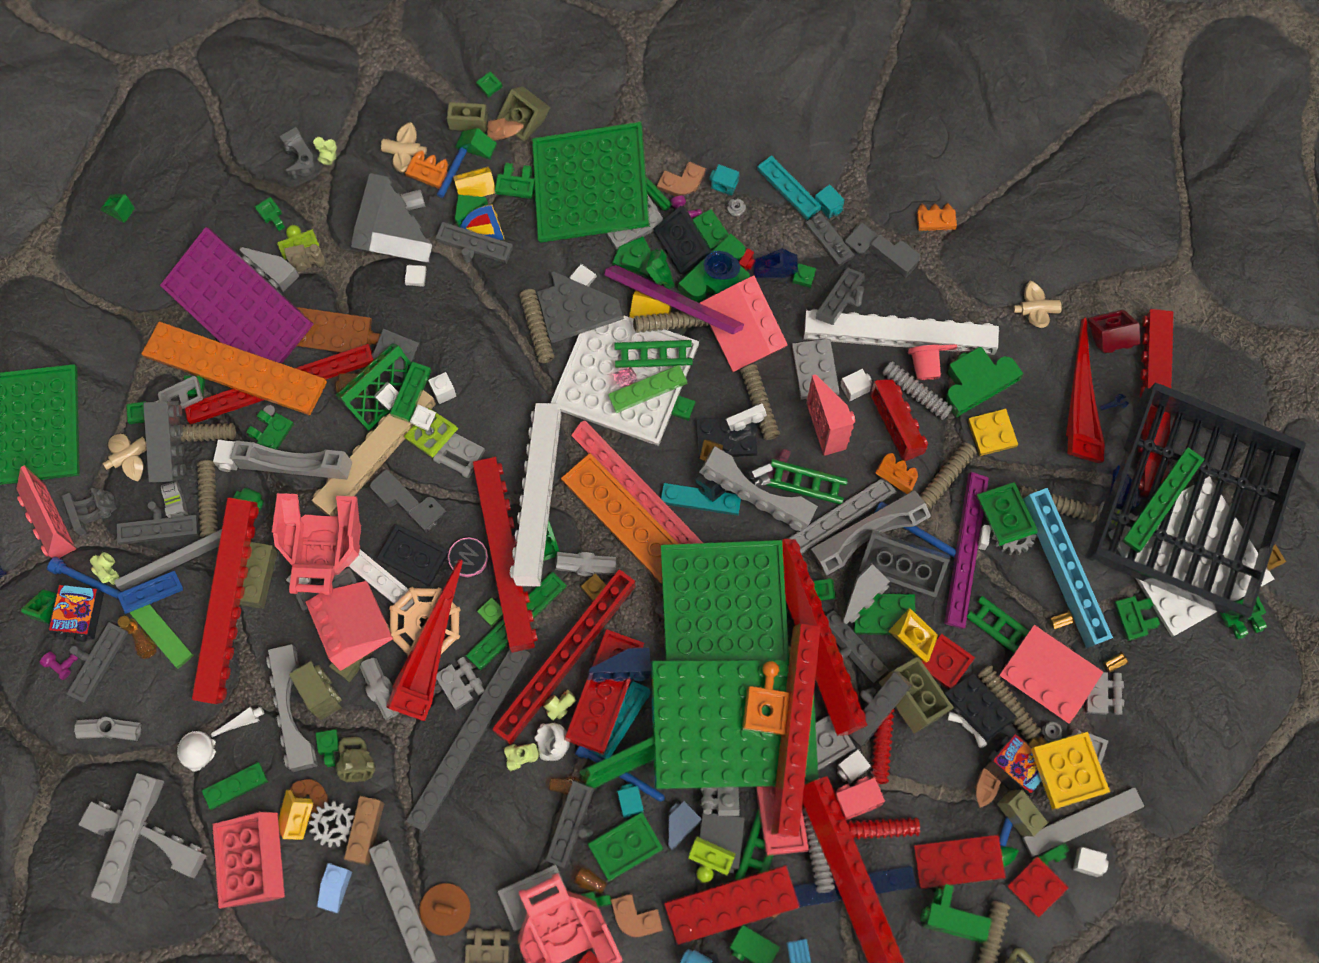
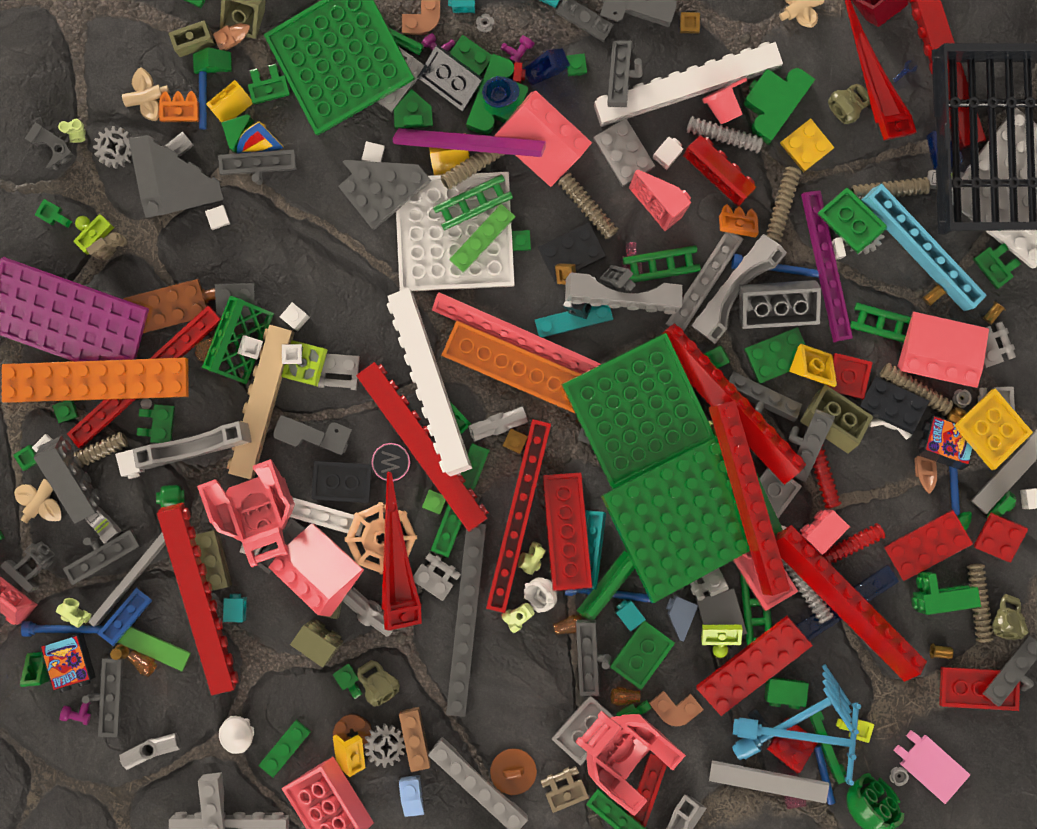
camera: 25 degrees left, 15 degrees up
(181, 390) = (57, 420): light grey piece -> none
(207, 497) = (132, 510): dark tan piece -> none
(247, 717) = (267, 684): white piece -> none
(255, 629) = (234, 608): none -> teal brick
(273, 267) = (83, 267): light grey slope -> none
(299, 751) = (324, 694): light grey arch -> none
(350, 174) = (107, 149): none -> light grey gear
(410, 392) = (269, 335): green plate -> none
(536, 326) = (352, 219): dark tan piece -> none
(625, 377) = (457, 236): clear pink plate -> none
(629, 664) = (579, 499): dark blue slope -> none
(659, 269) = (441, 117): green plate -> none
(740, 420) = (579, 235): white plate -> none
(753, 245) = (516, 55): none -> magenta piece
(776, 700) = (706, 485): orange plate -> none
(853, 767) = (806, 503): white brick -> none
(866, 587) = (755, 344): light grey slope -> none
(925, 280) = (690, 22): none -> pearl gold plate
(1022, 813) = (965, 482): olive brick -> none
(1046, 409) = (847, 104): none -> olive piece
(1163, 500) = (987, 150): green plate -> none

